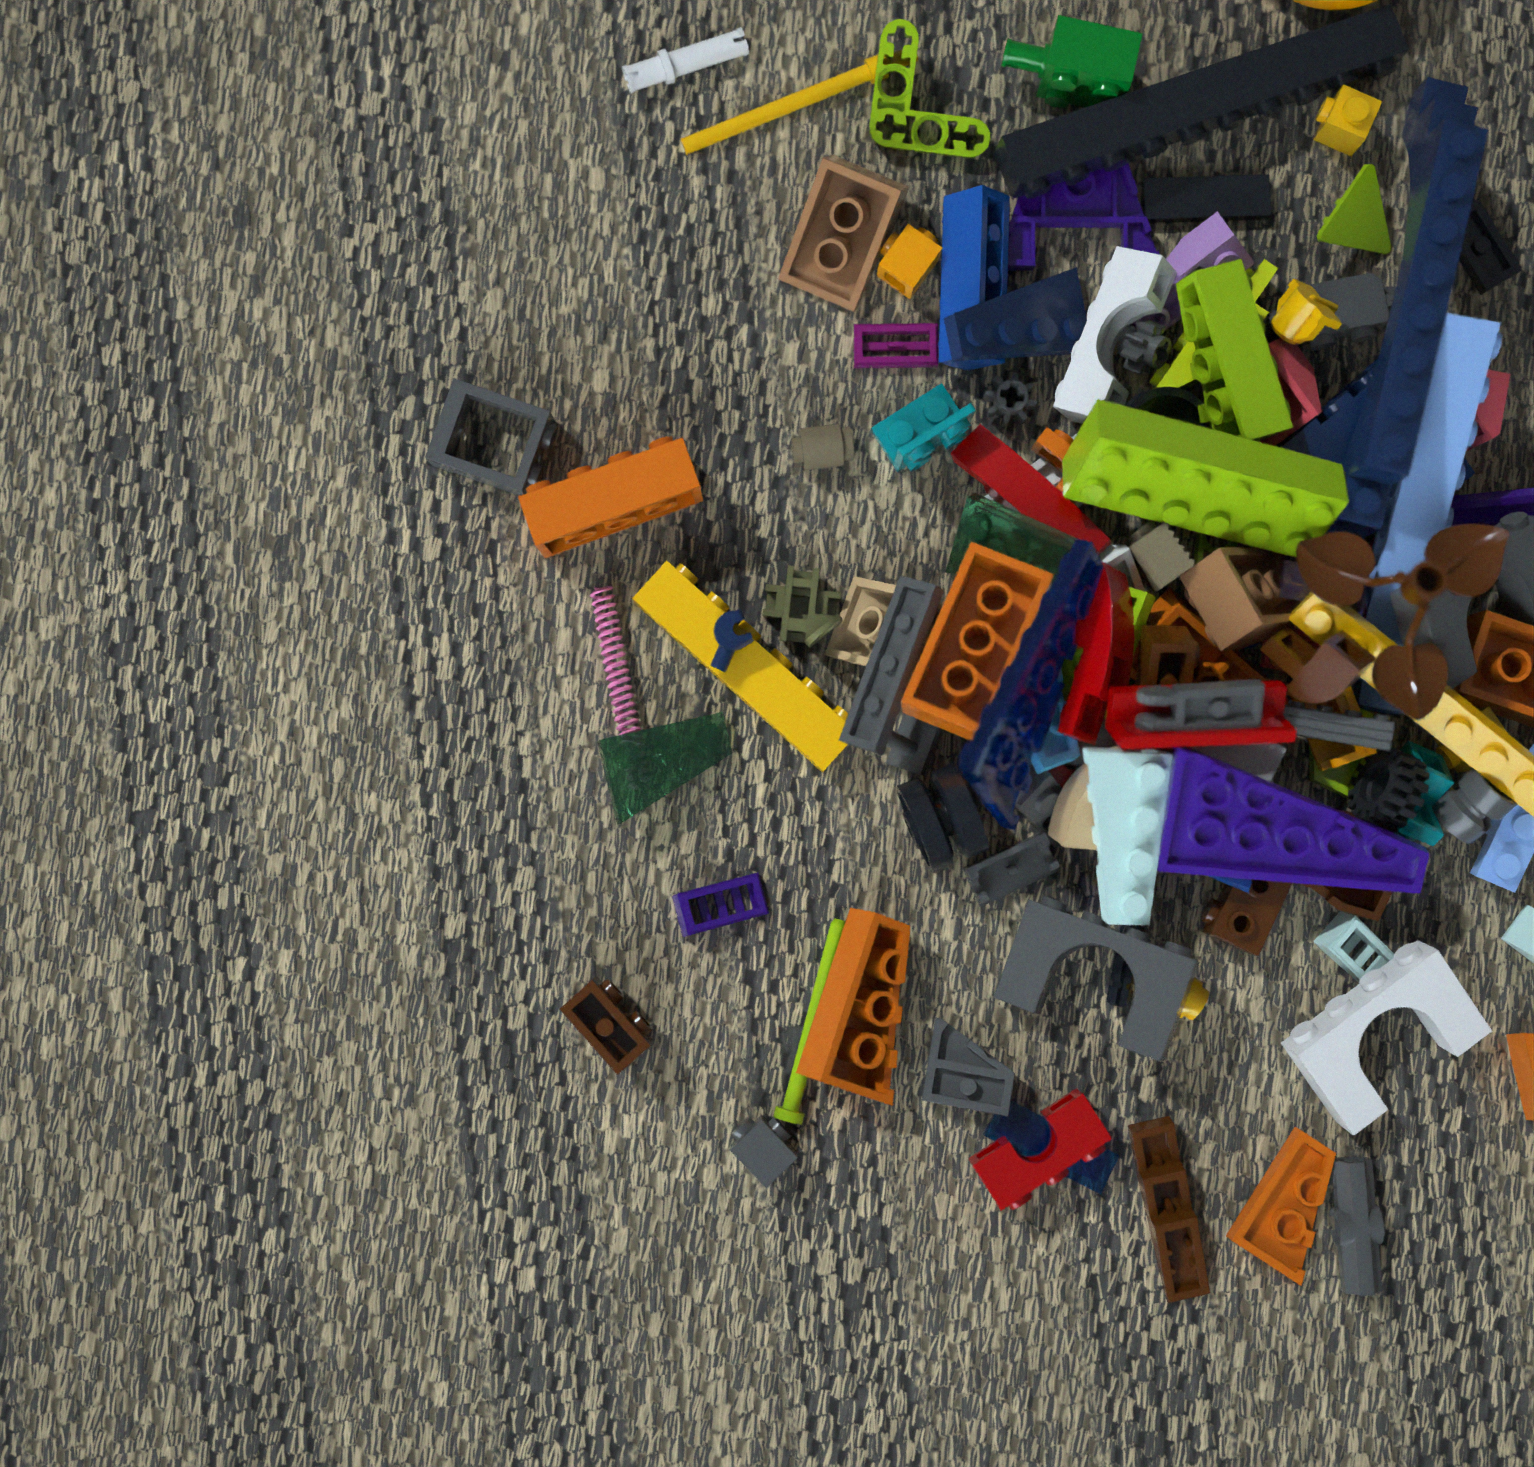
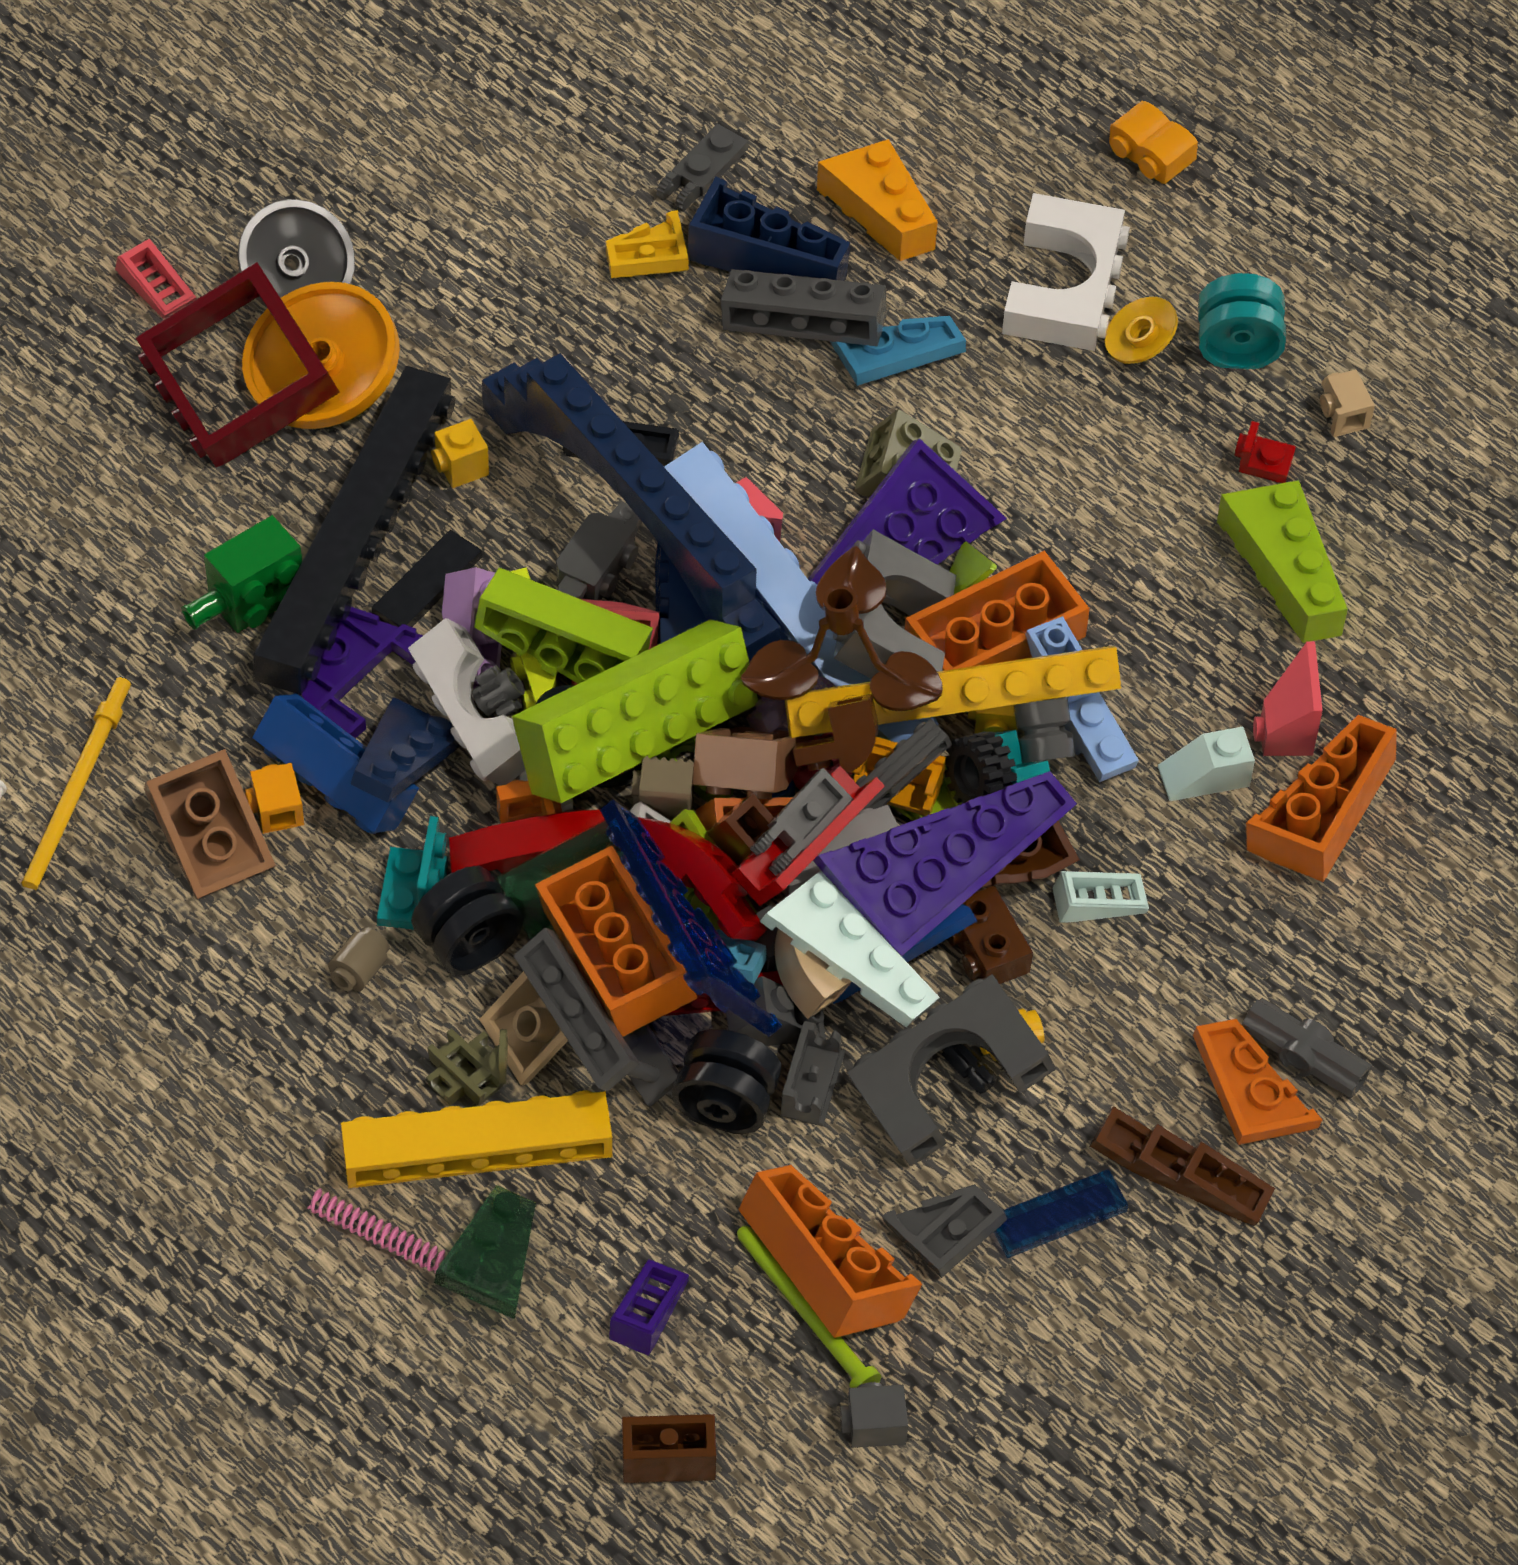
camera: 55 degrees left, 30 degrees down
(451, 425) = (133, 1213): dark grey window -> none
(611, 496) = (253, 1122): orange brick -> none
(727, 639) = (444, 1117): dark blue piece -> none
(896, 361) = (319, 889): magenta tile -> none
(899, 106) = (156, 719): lime beam -> none
(916, 503) = (467, 920): none -> black wheel
(999, 402) = (452, 809): dark grey gear -> none
(1074, 1136) = (1049, 1243): red arch -> none
(1303, 314) = (577, 571): yellow piece -> none
(1329, 1043) = (1145, 959): white arch -> none
(1358, 216) = (538, 496): lime piece -> none

